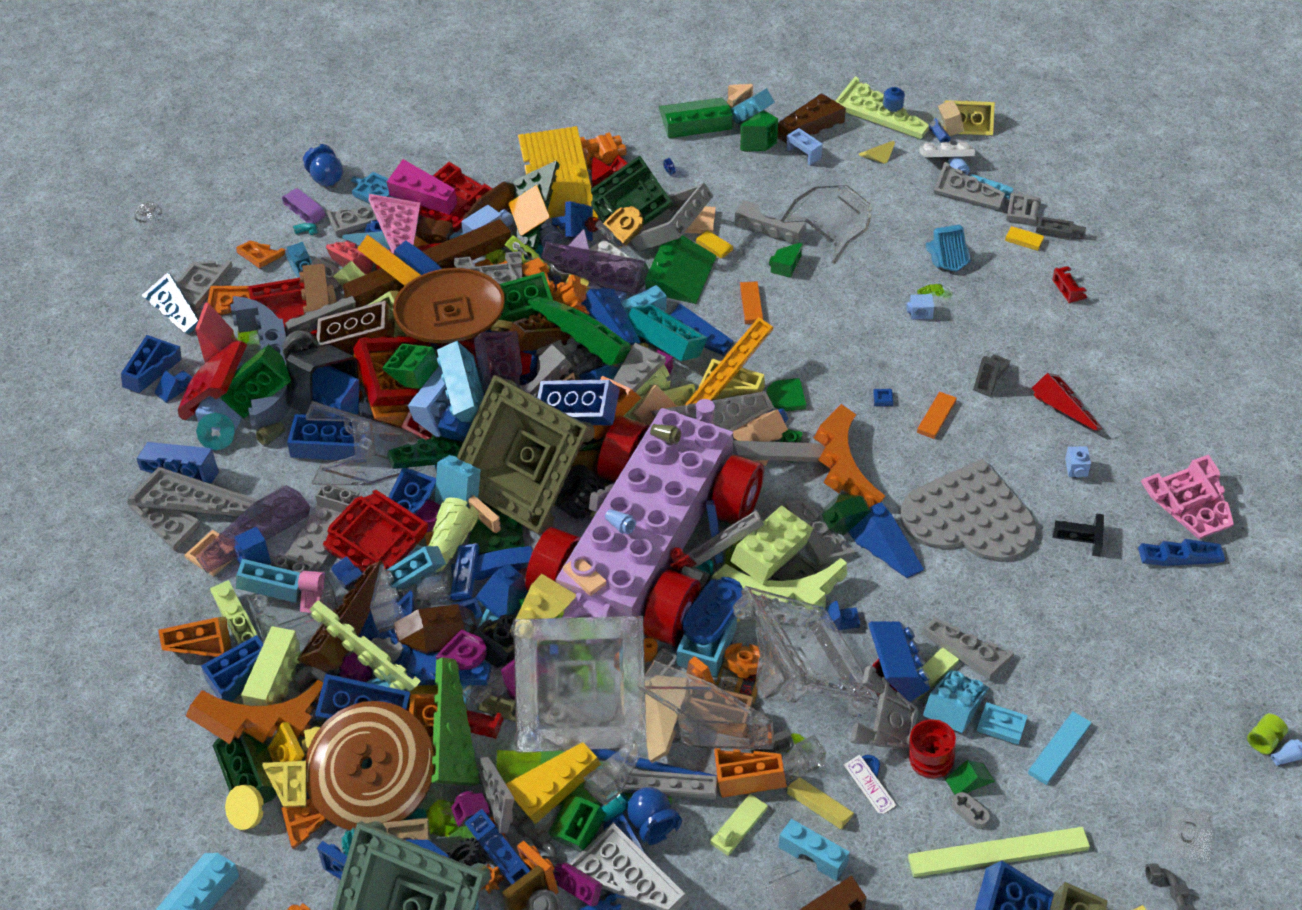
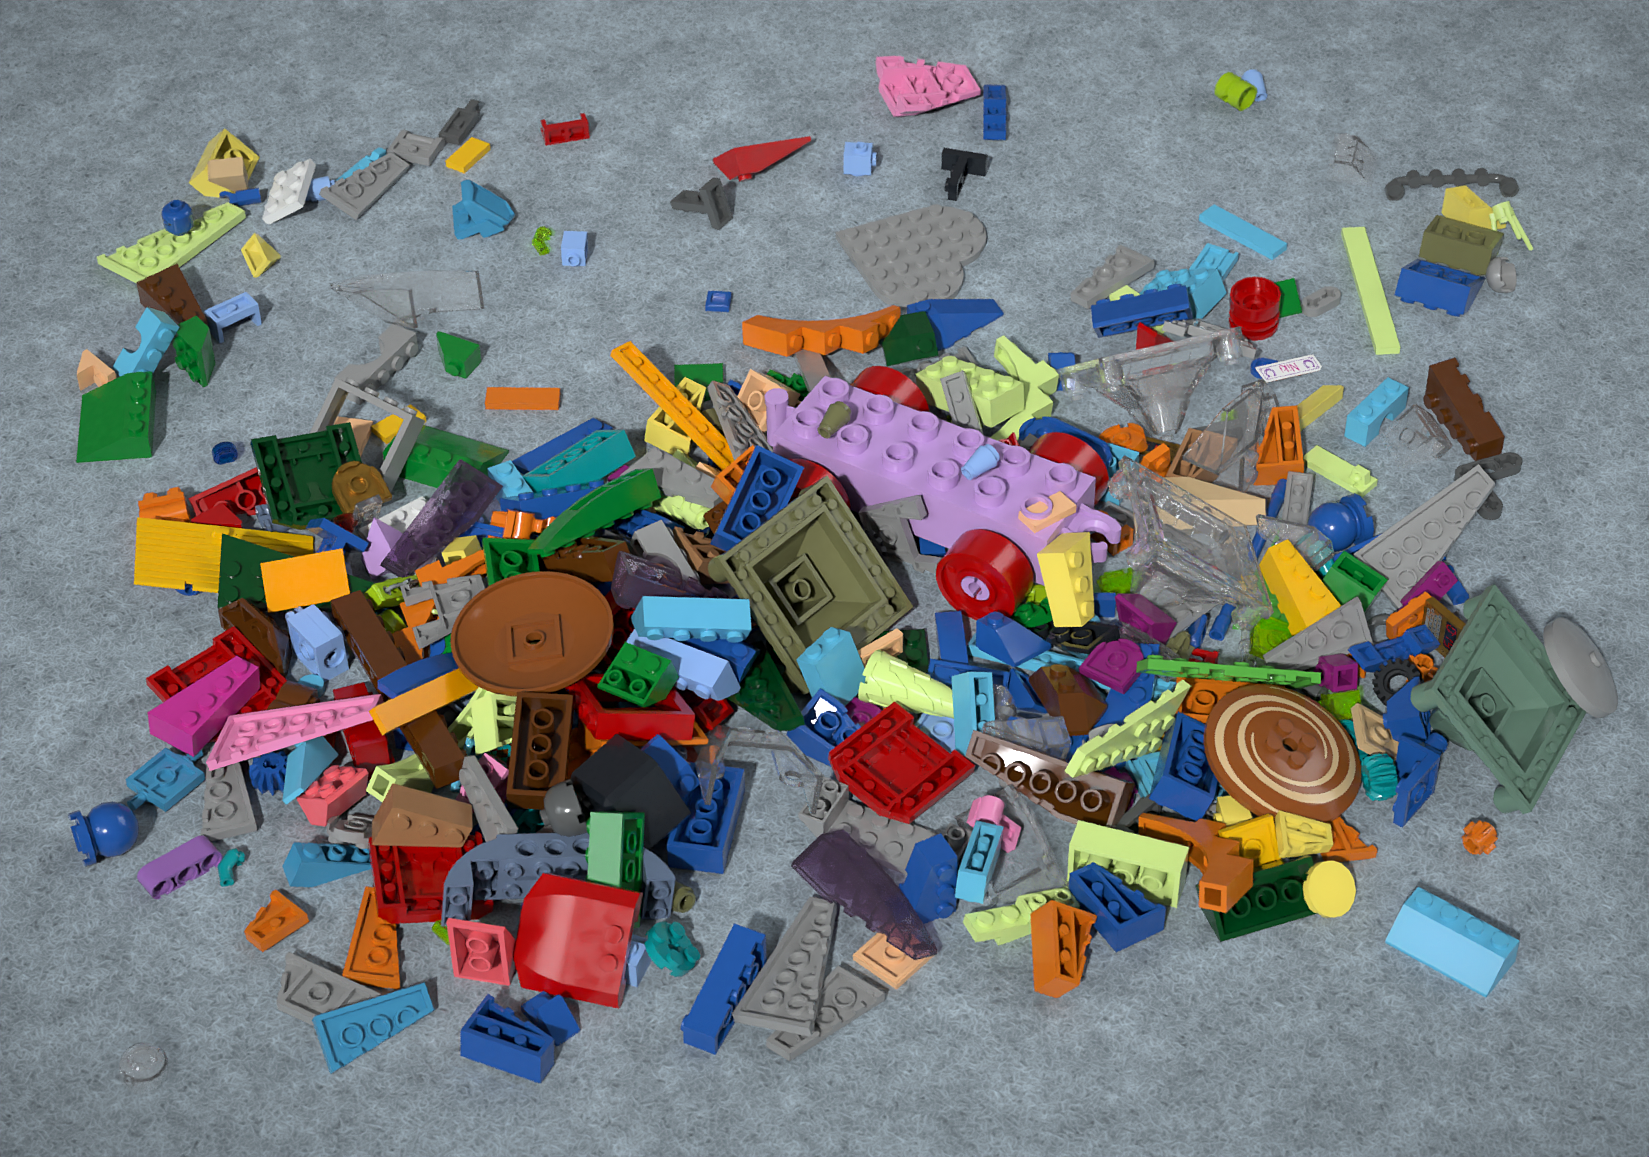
camera: 85 degrees left, 5 degrees down
(346, 572) = (972, 785): blue slope -> none
(936, 415) = (756, 261): orange tile -> none

